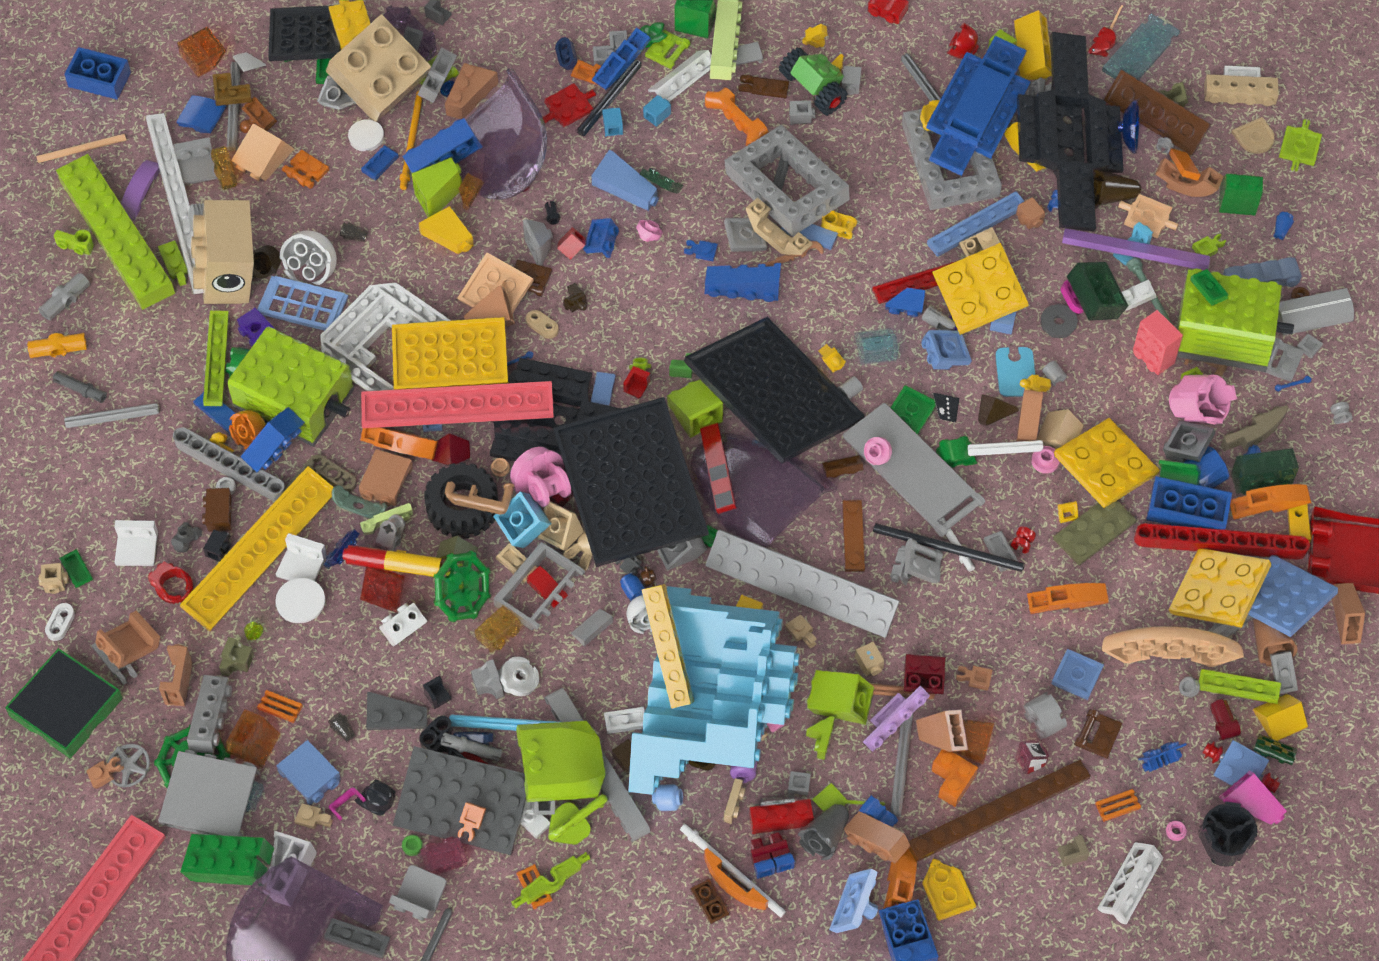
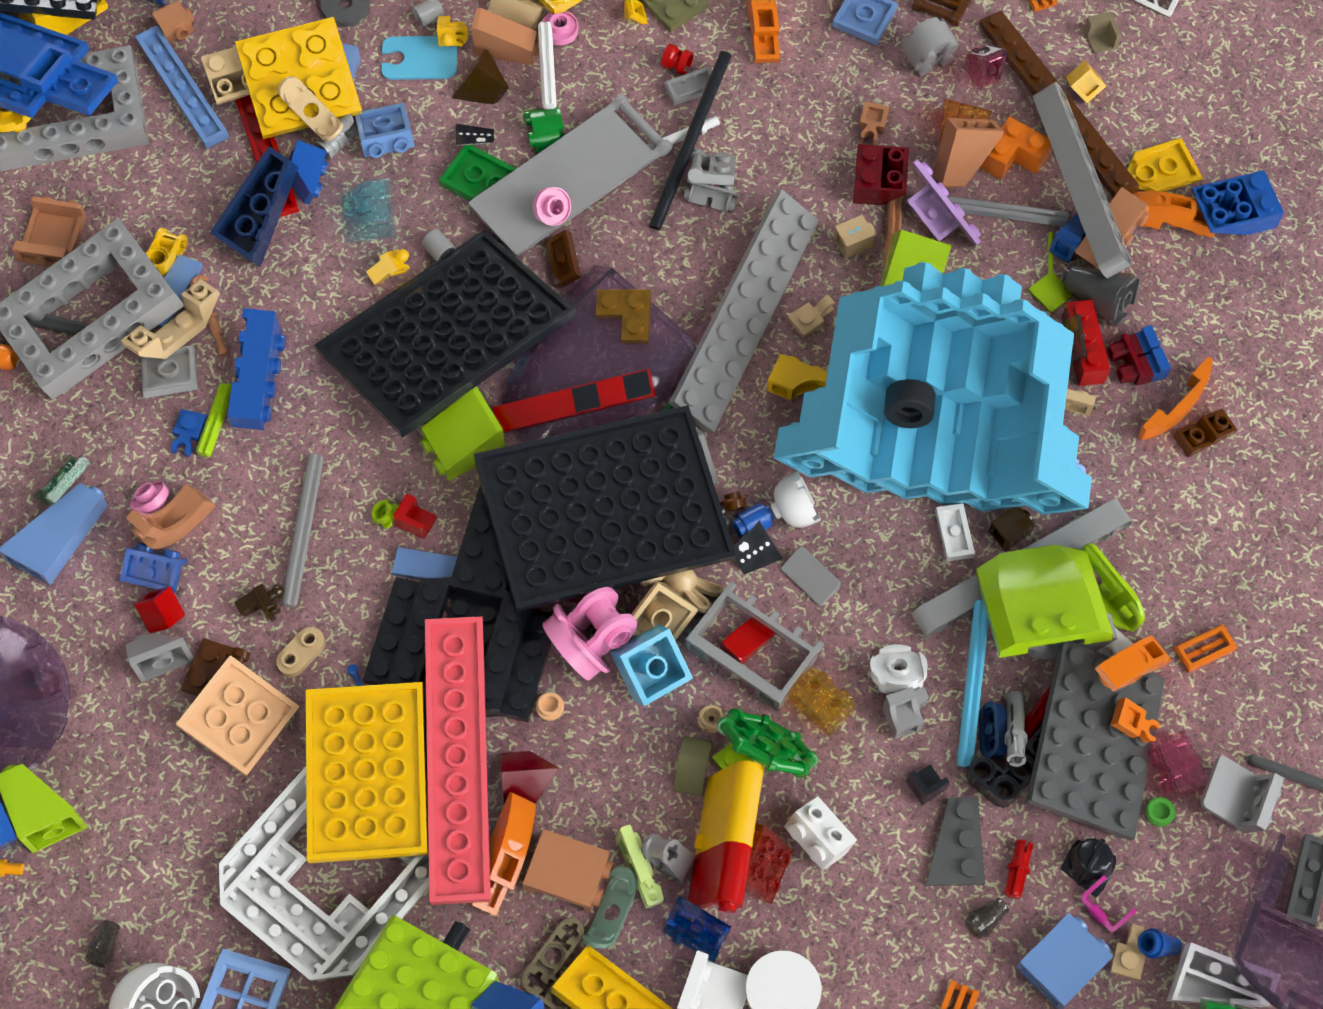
camera: 90 degrees left, 5 degrees up
(315, 830) = (1158, 944): none -> blue cone
(374, 749) = (1018, 869): none -> red axle
(447, 231) = (119, 792): yellow slope -> none
(459, 521) = (613, 790): black tyre -> none
(469, 189) = (43, 761): clear orange tile -> none
(480, 503) = (634, 725): medium nougat piece -> none
(488, 558) = (707, 712): none -> tan plate
(493, 306) = (284, 718): nougat slope -> none
(512, 559) = (709, 682): tan plate -> none
(512, 821) = (1132, 663): none -> orange slope
(542, 886) = (1210, 633): lime piece -> none
(552, 215) = (99, 639): black pin -> none
(611, 590) = (756, 550): none -> black sticker
(629, 319) = (302, 530): none -> light grey axle
(630, 242) = (173, 520): none -> nougat arch
(668, 646) = (892, 437): yellow brick -> none
(679, 369) = (390, 457): bright green panel -> none
(694, 836) = (1116, 450): white bar -> none
(700, 262) = (214, 420): none -> lime axle
(702, 665) = (909, 403): none -> black tyre
(786, 500) = (632, 307): none -> pearl gold plate
(851, 159) = (50, 231): none -> nougat panel
(853, 536) = (666, 252): dark orange plate -> none
(855, 902) = (1198, 261): light blue plate -> none
(868, 270) = (257, 206): none -> dark blue wedge
(903, 812) = (1082, 180): none -> light grey beam
(959, 286) = (297, 96): none -> tan piece
(1024, 835) = (1085, 81): none -> yellow panel

